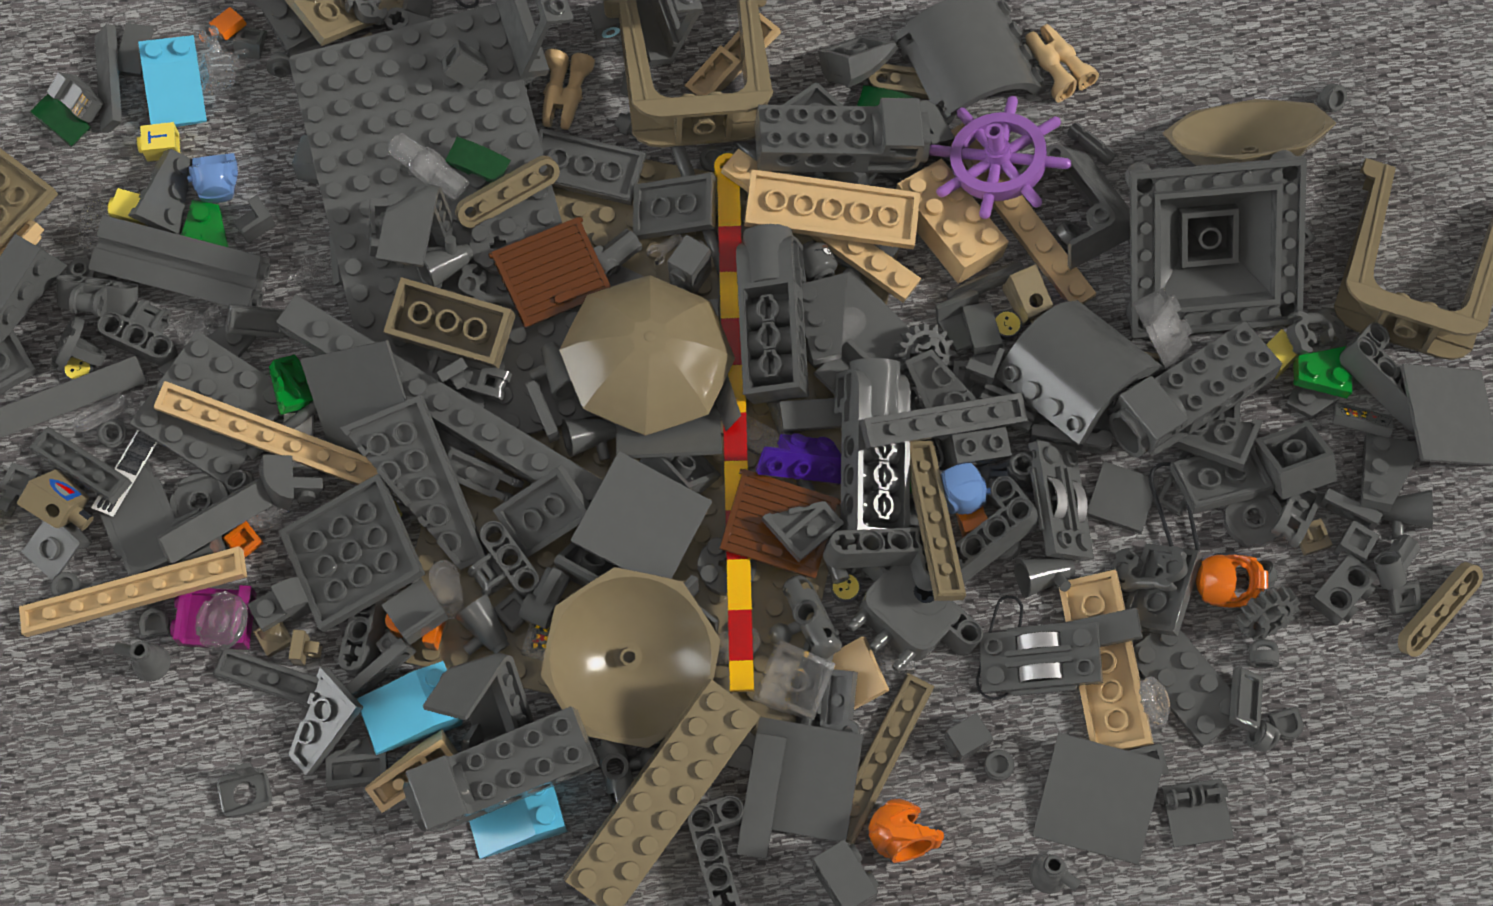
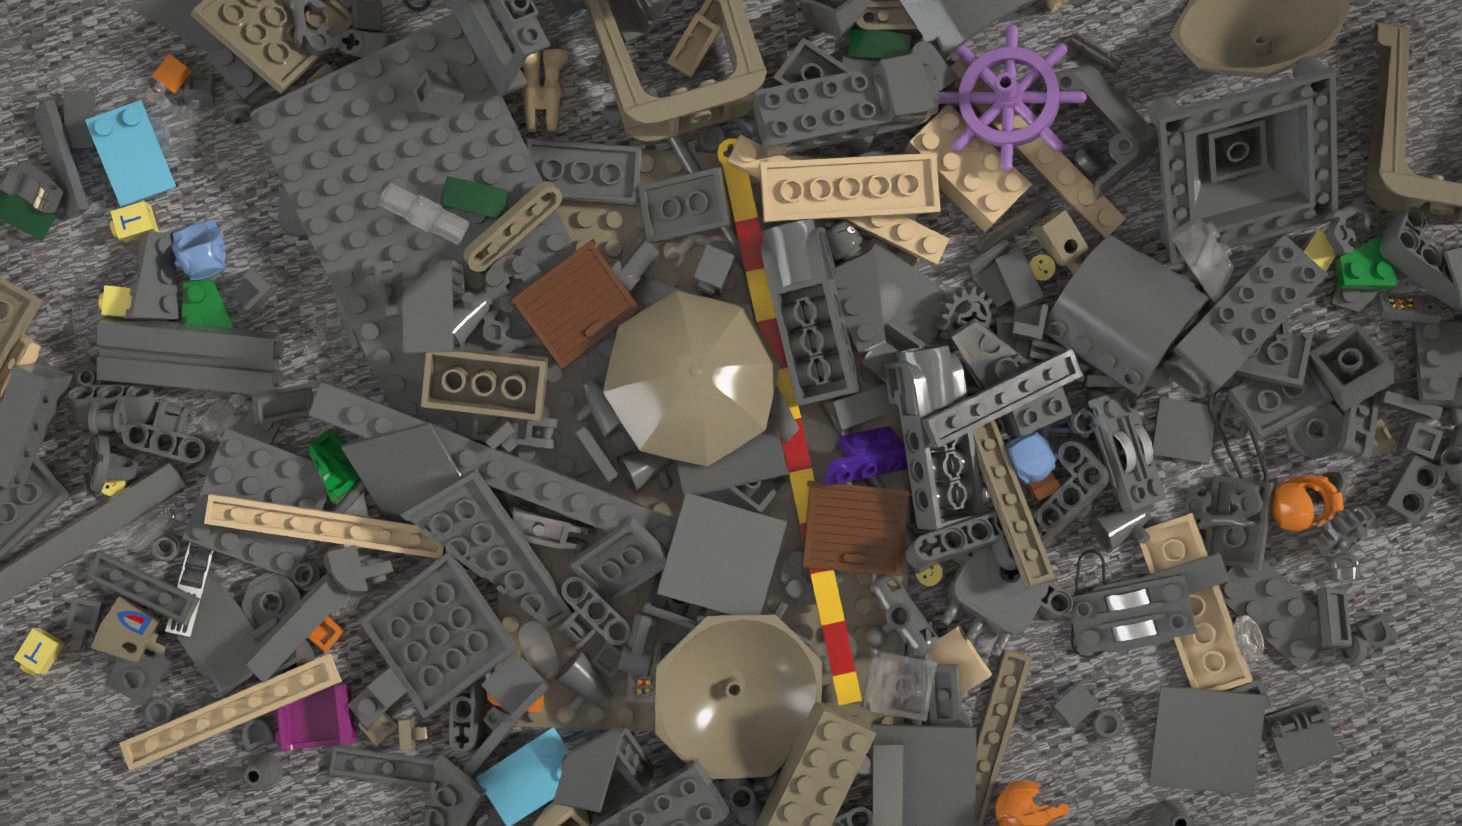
camera: 15 degrees left, 15 degrees up
(221, 621) = (325, 724): clear tile -> none
(803, 527) = (882, 531): dark grey wing -> none

